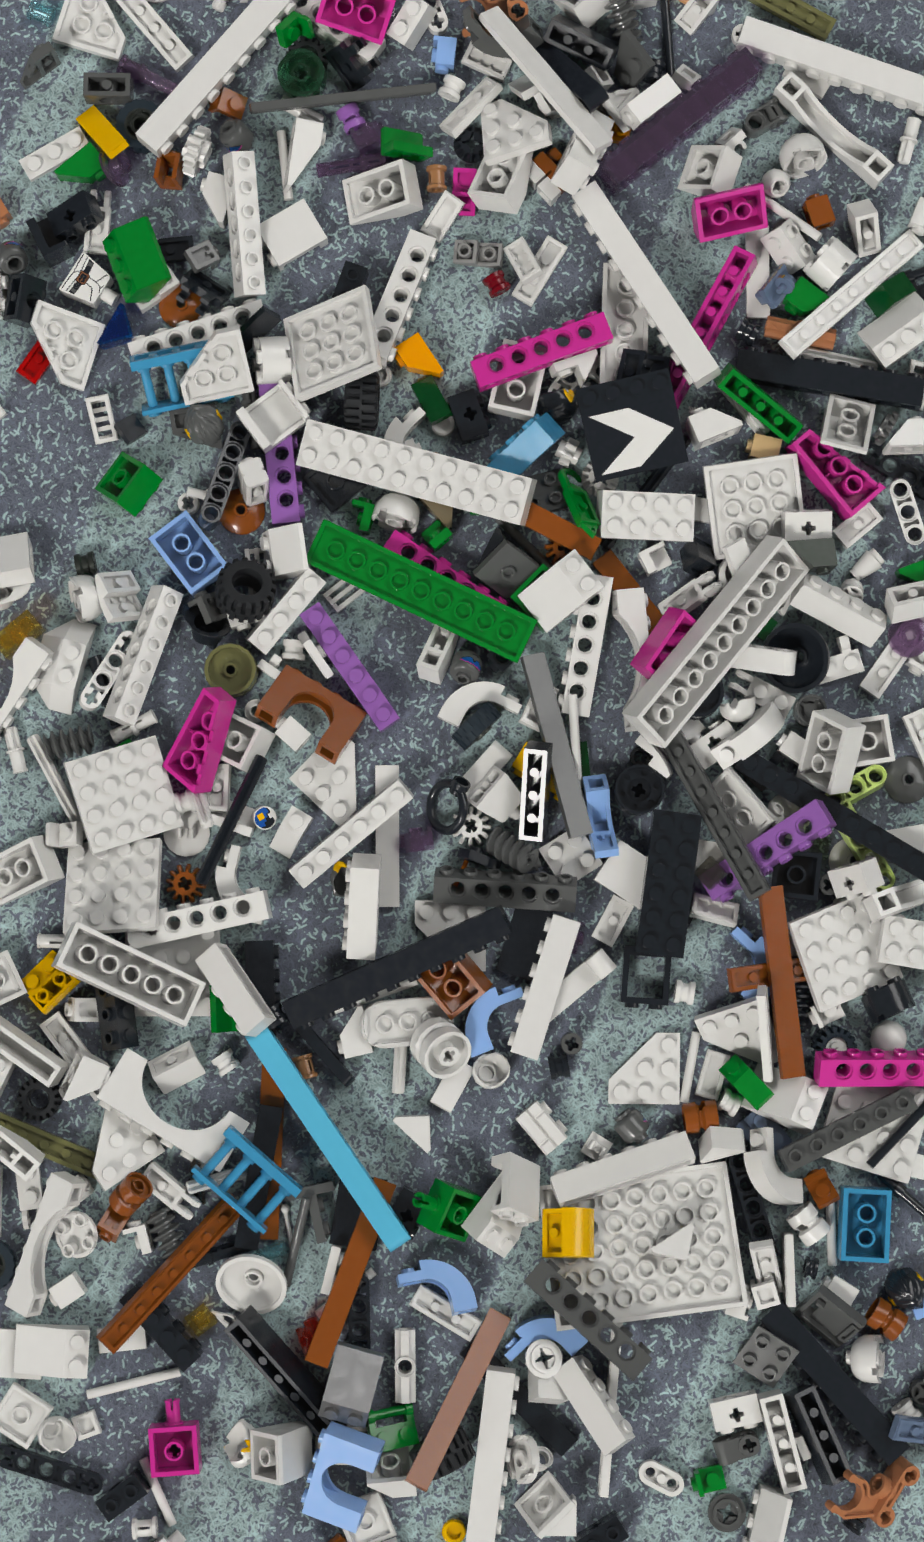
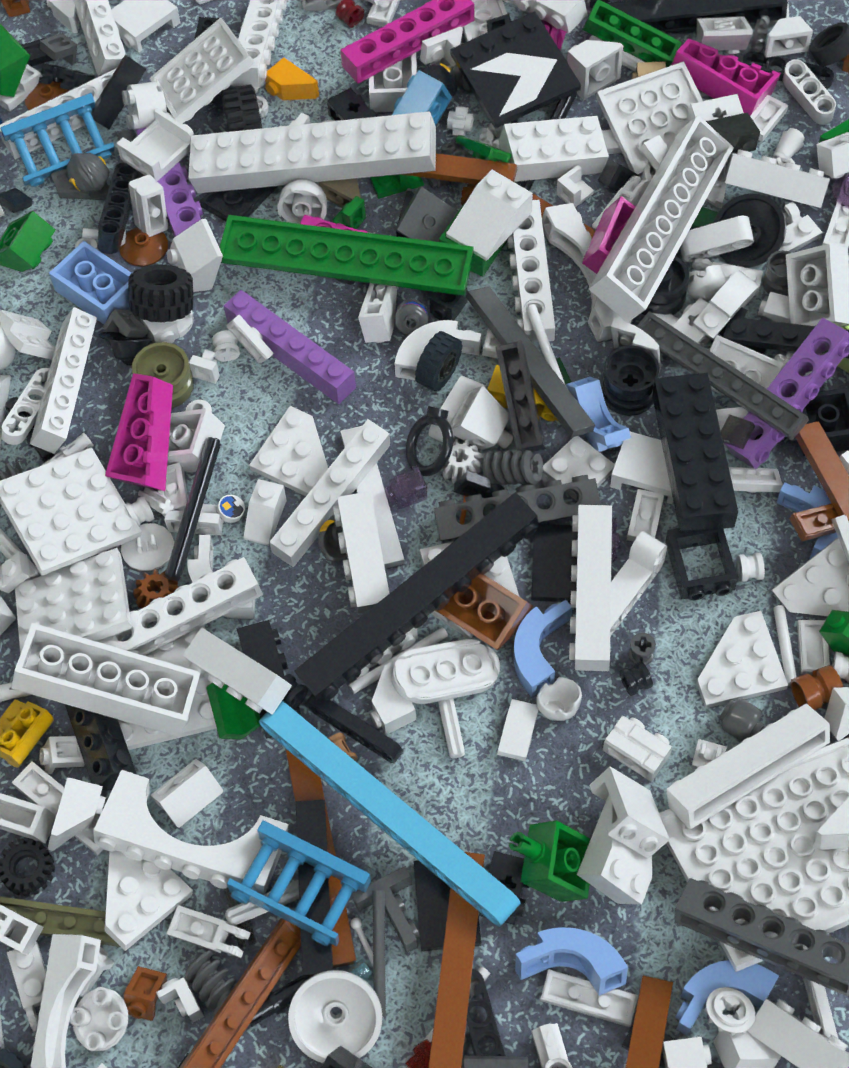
camera: 10 degrees left, 25 degrees down
(130, 1194) = (159, 943): dark orange wheel -> none
(218, 369) = (92, 115): white plate -> none
(225, 1062) = (244, 769): white wheel -> none
(286, 611) = (202, 317): white arch -> none
(292, 733) = (243, 420): white brick -> none
(294, 688) = (230, 377): dark orange arch -> none
(327, 594) = (257, 289): white tile -> none
(334, 1260) = (432, 967): white plate -> none
(364, 519) = (267, 209): green bracket -> none
(417, 1128) = (490, 786): white slope -> none
(431, 400) = (314, 109): dark green tile -> none
(440, 1047) = (493, 682): white wheel -> none
(568, 1232) = (710, 845): yellow brick -> none

